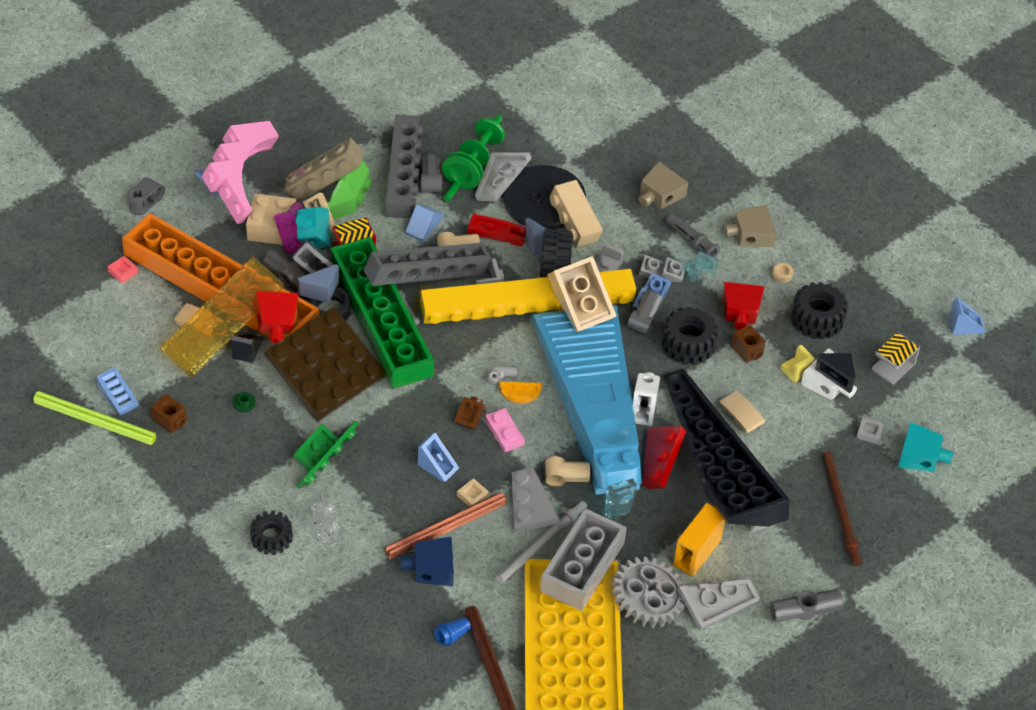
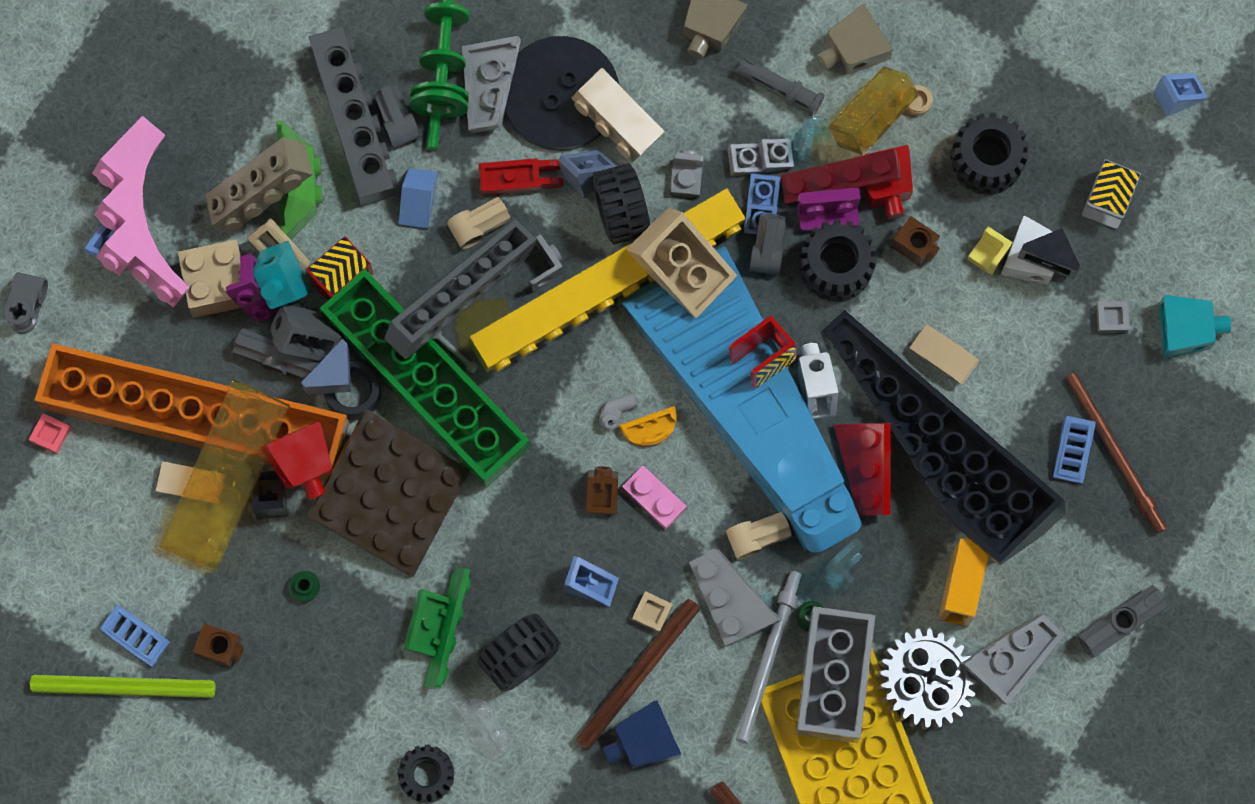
camera: 20 degrees left, 25 degrees up
(369, 476) = (519, 652): none -> black tyre
(615, 355) = (755, 337): none -> red piece
(695, 299) = (828, 206): none -> magenta bracket
(711, 289) = (845, 174): none -> dark red plate
(748, 262) = (873, 110): none -> clear yellow brick
(817, 482) = (1077, 424): none -> medium blue slope

